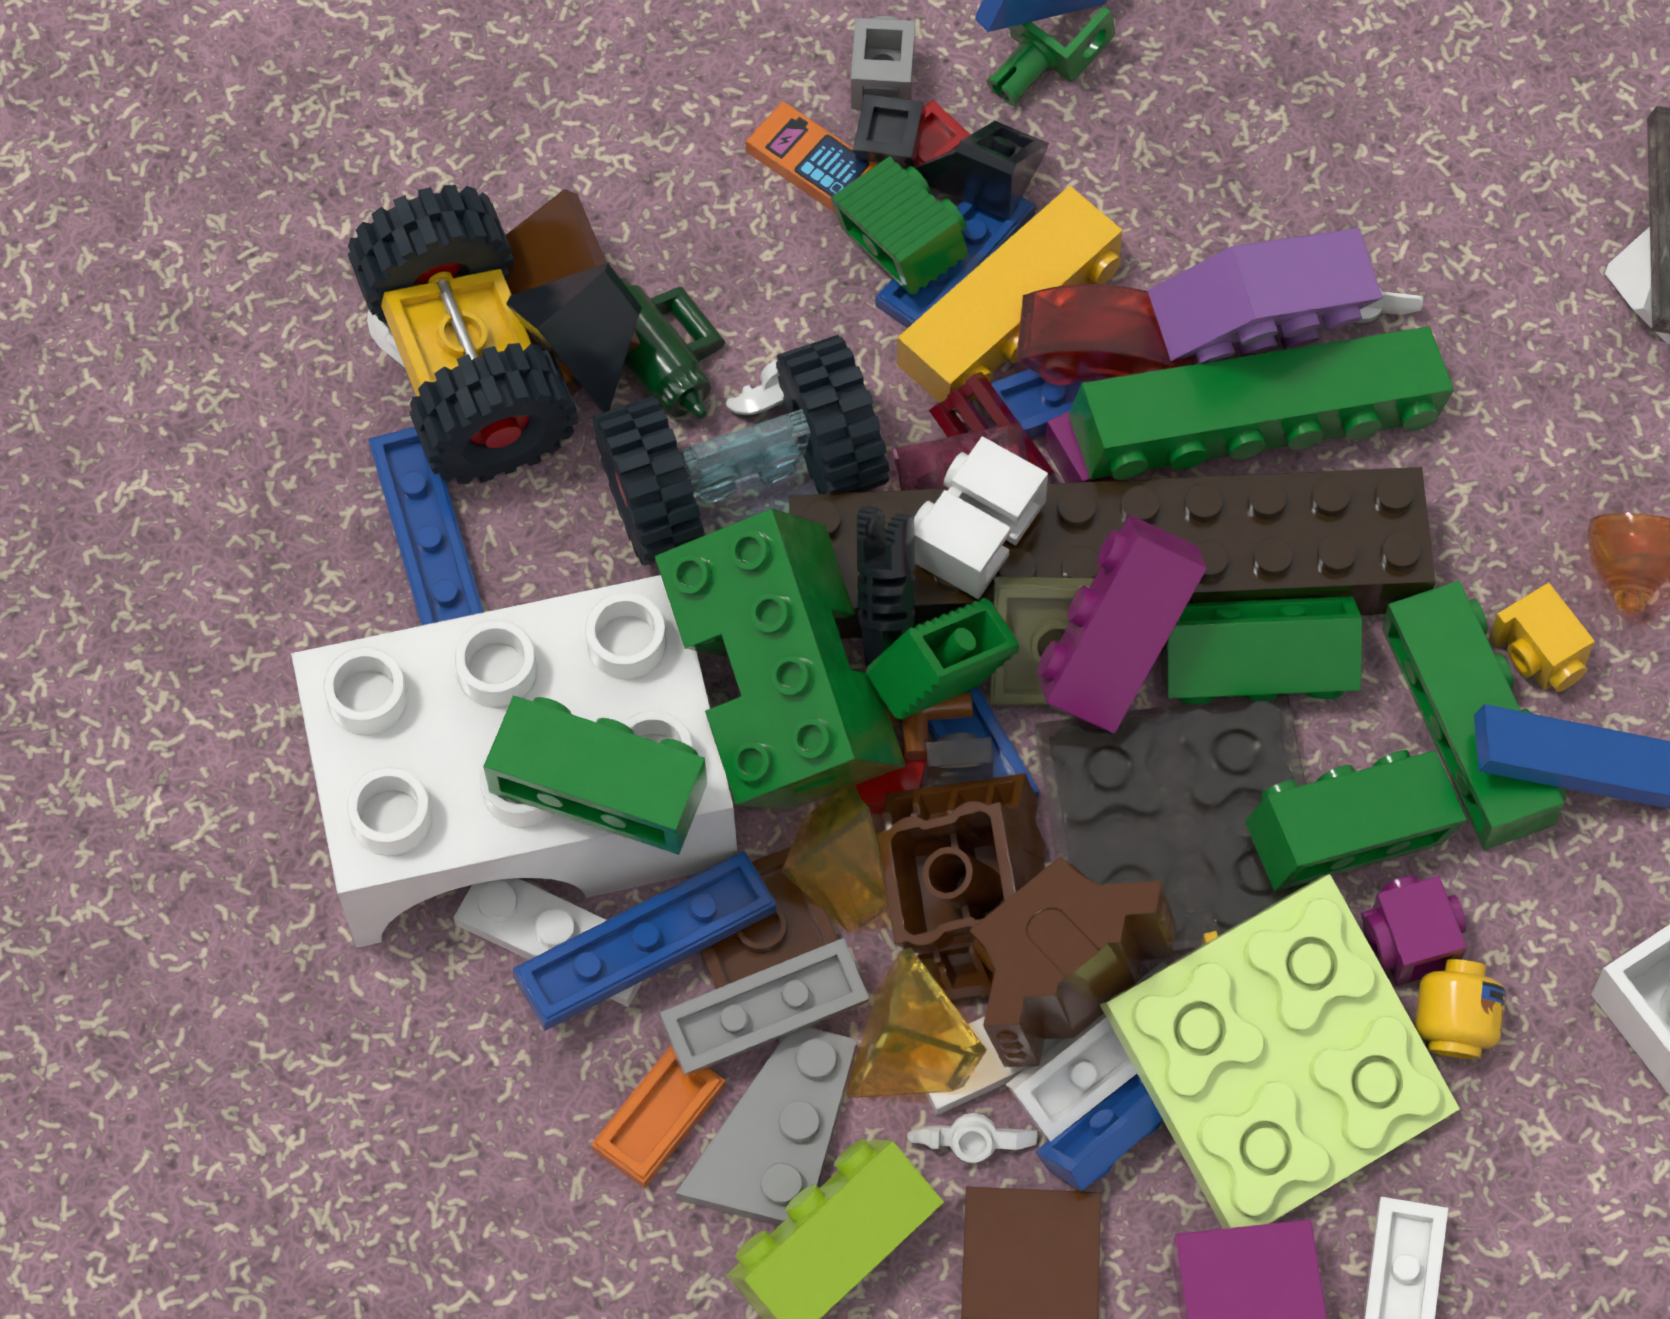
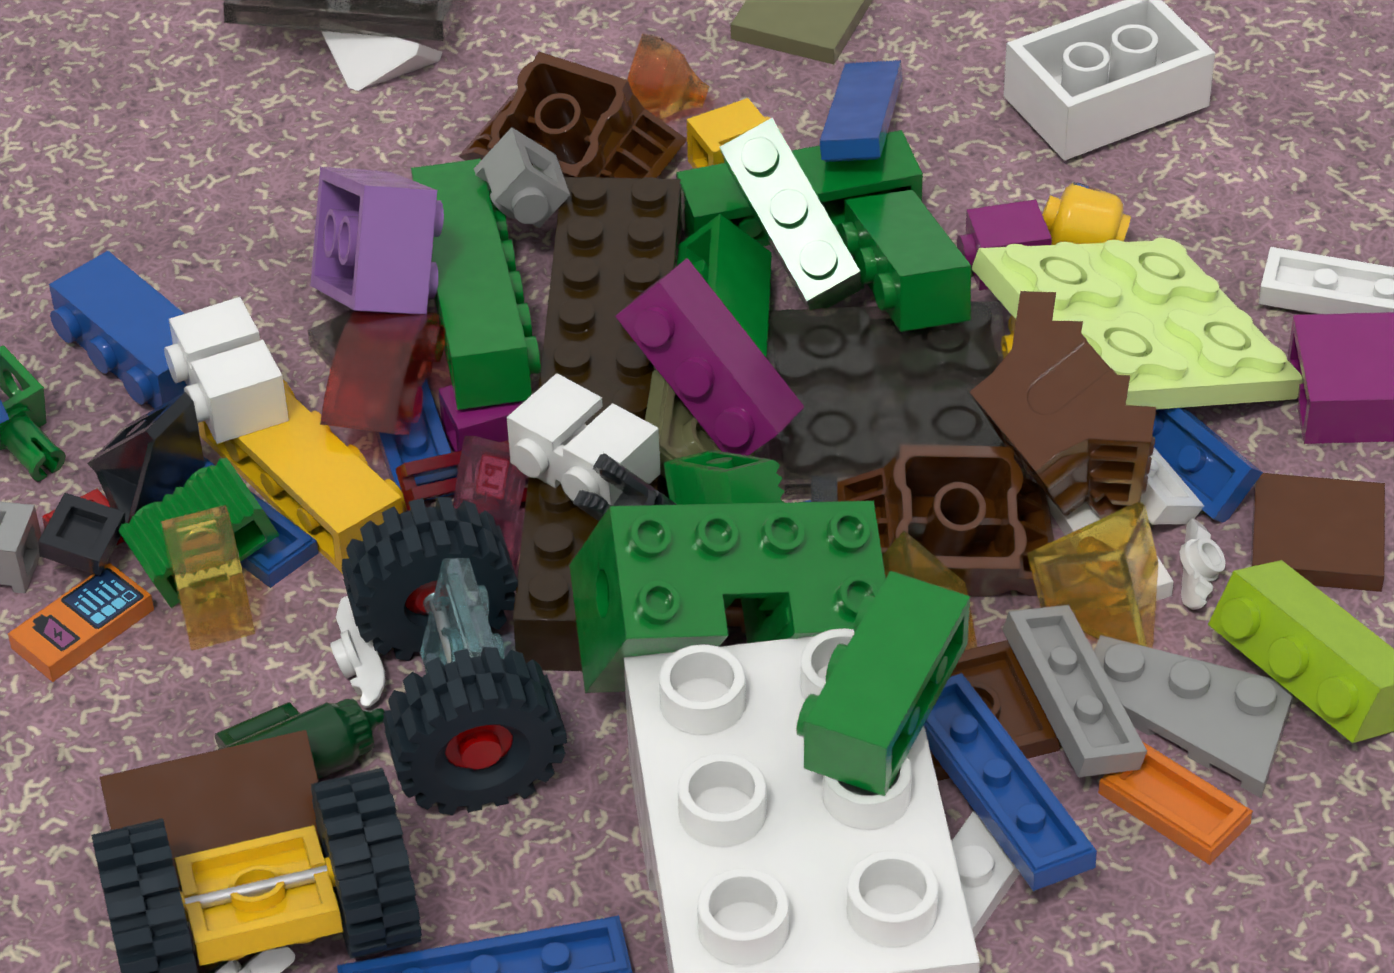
camera: 85 degrees left, 20 degrees down
(585, 325) = (273, 767): black slope -> none
(830, 236) = (208, 577): none -> clear yellow slope
(1091, 187) = (226, 370): none -> white piece
(1175, 127) = (119, 325): none -> blue brick
(1379, 689) = (792, 216): none -> brick
(1414, 433) = (516, 185): none -> light grey brick
(1519, 484) = (584, 120): none -> reddish brown slope

